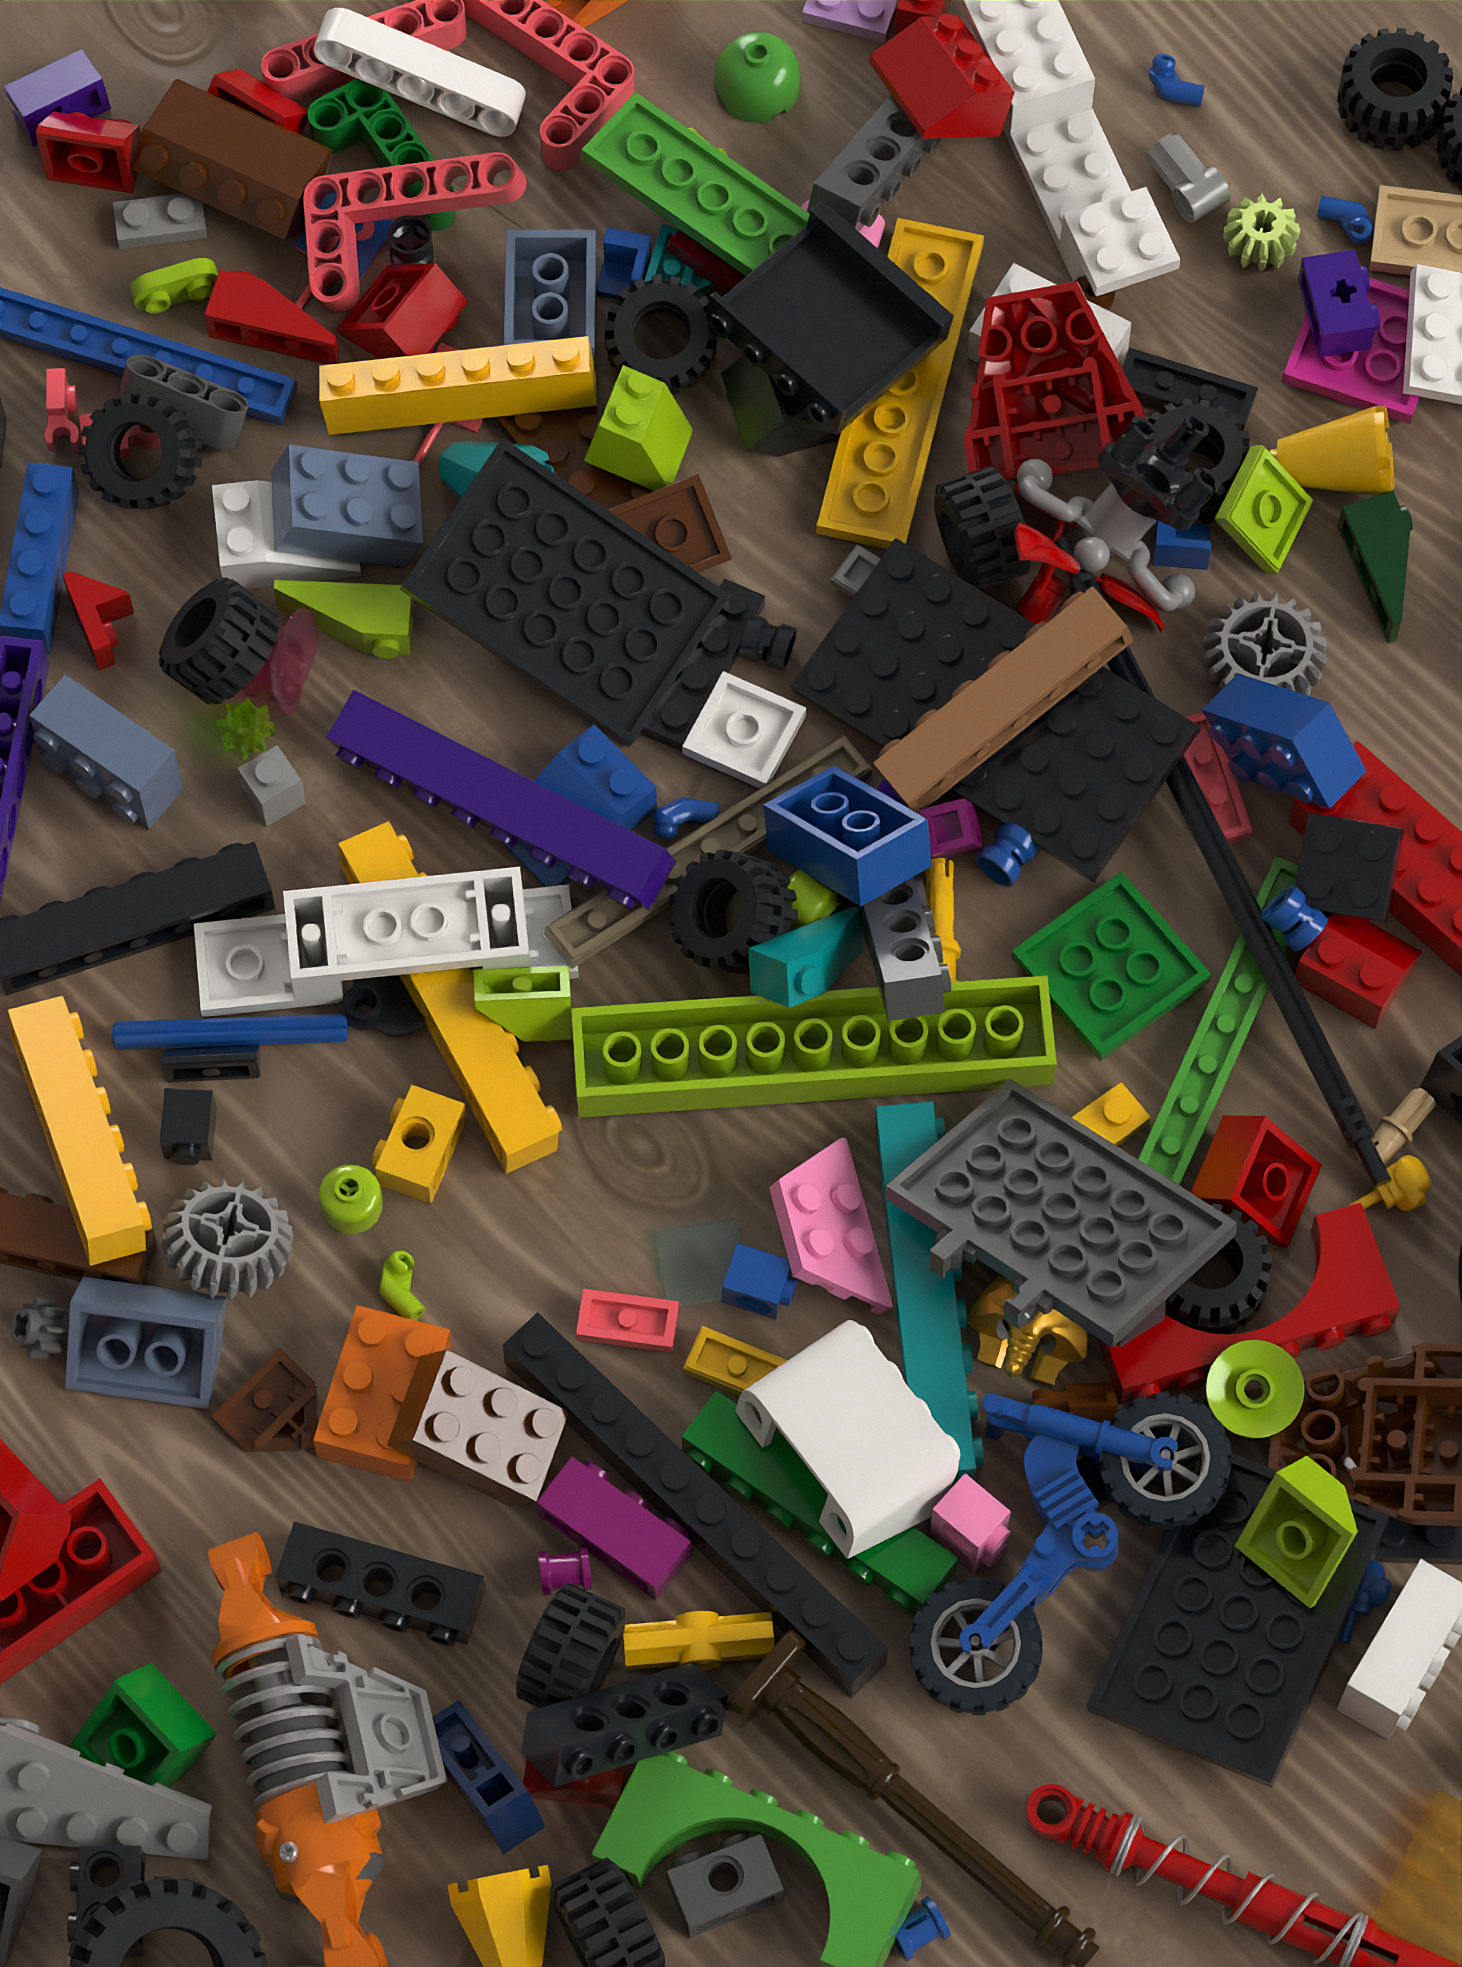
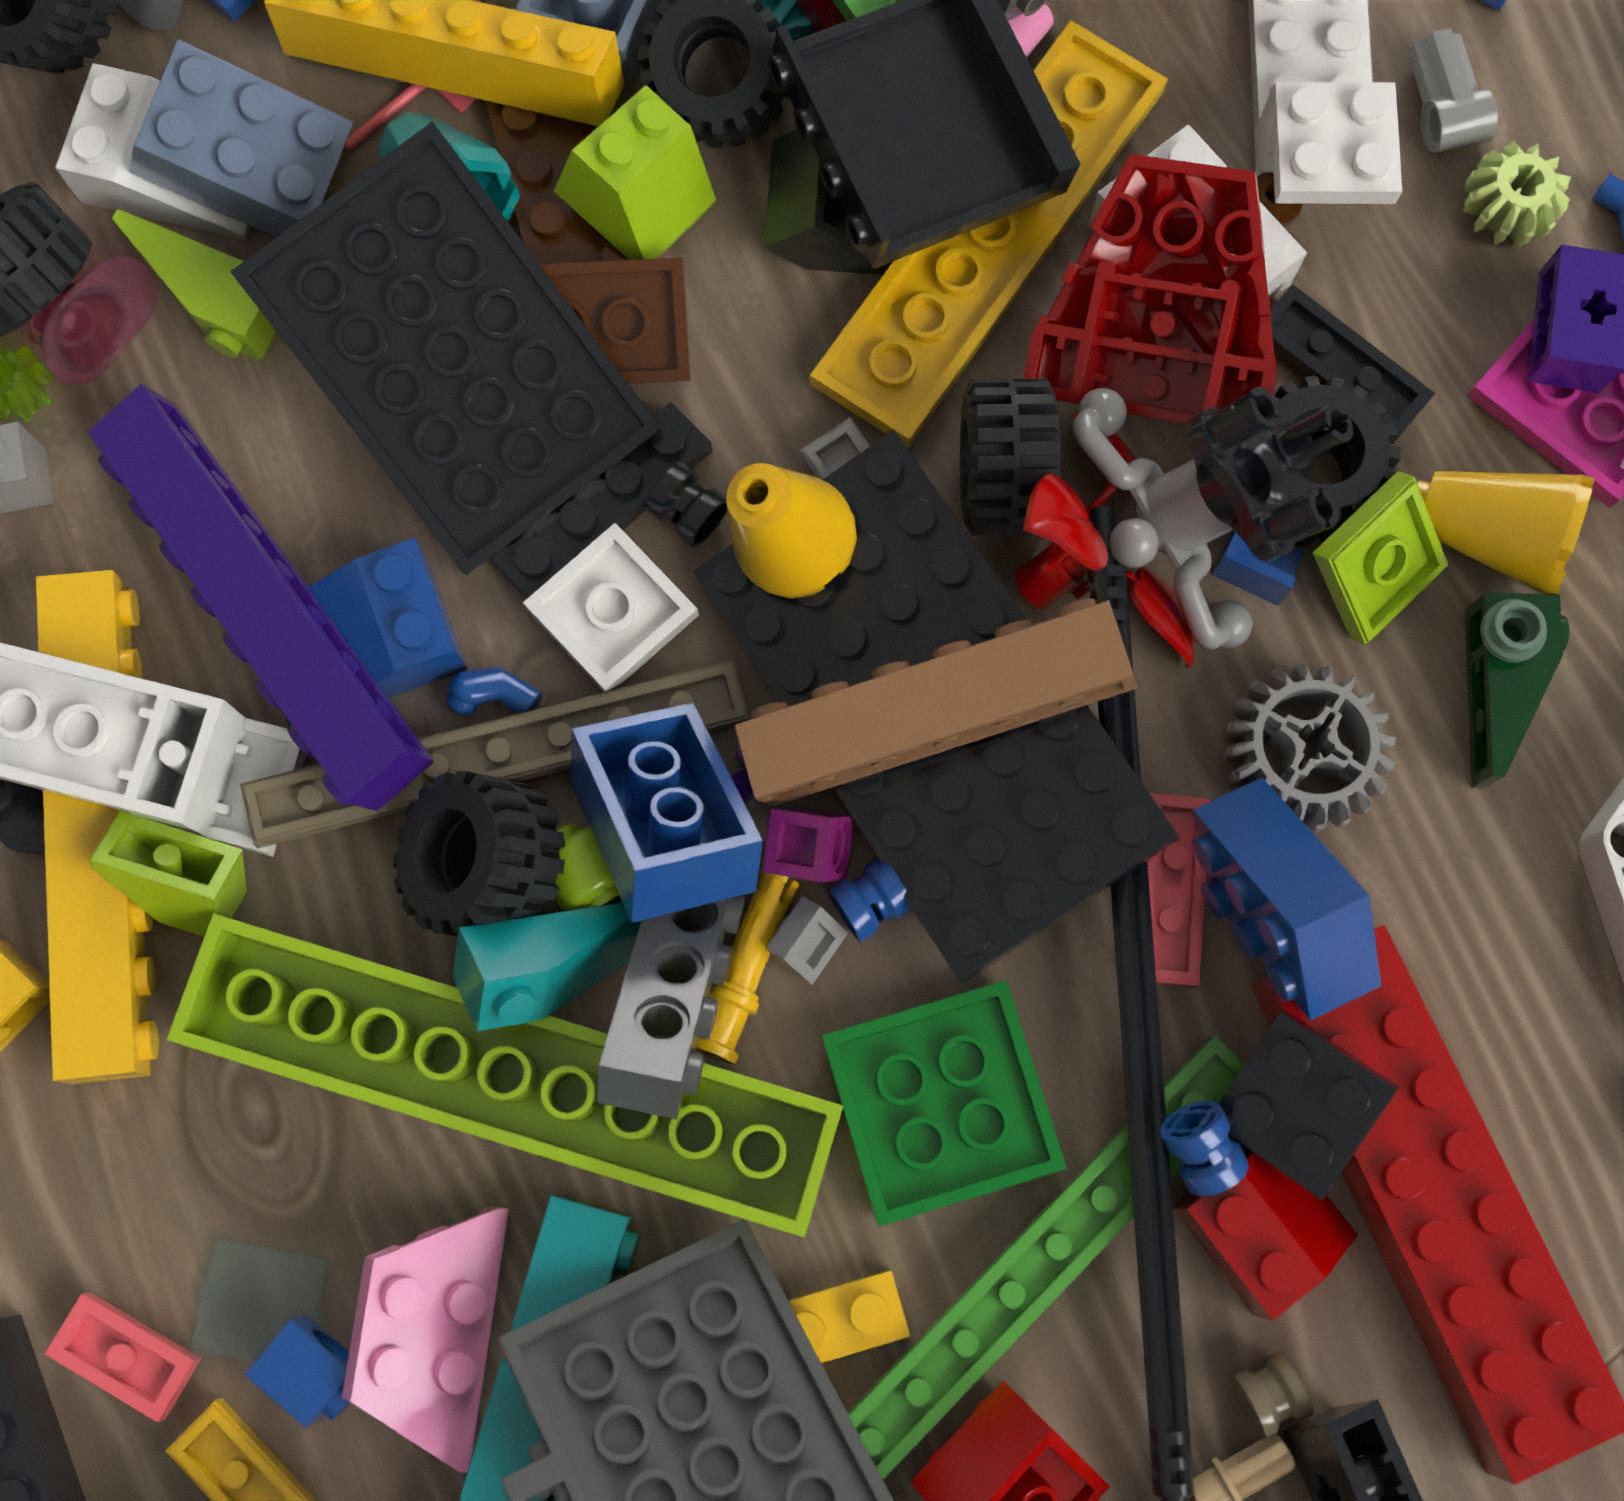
camera: 20 degrees right, 10 degrees up
(854, 627) = (789, 529): none -> yellow cone
(975, 895) = (807, 940): none -> light grey plate
(1373, 512) = (1525, 618): none -> sand green plate
(1402, 1064) = (1272, 1395): none -> dark tan wheel

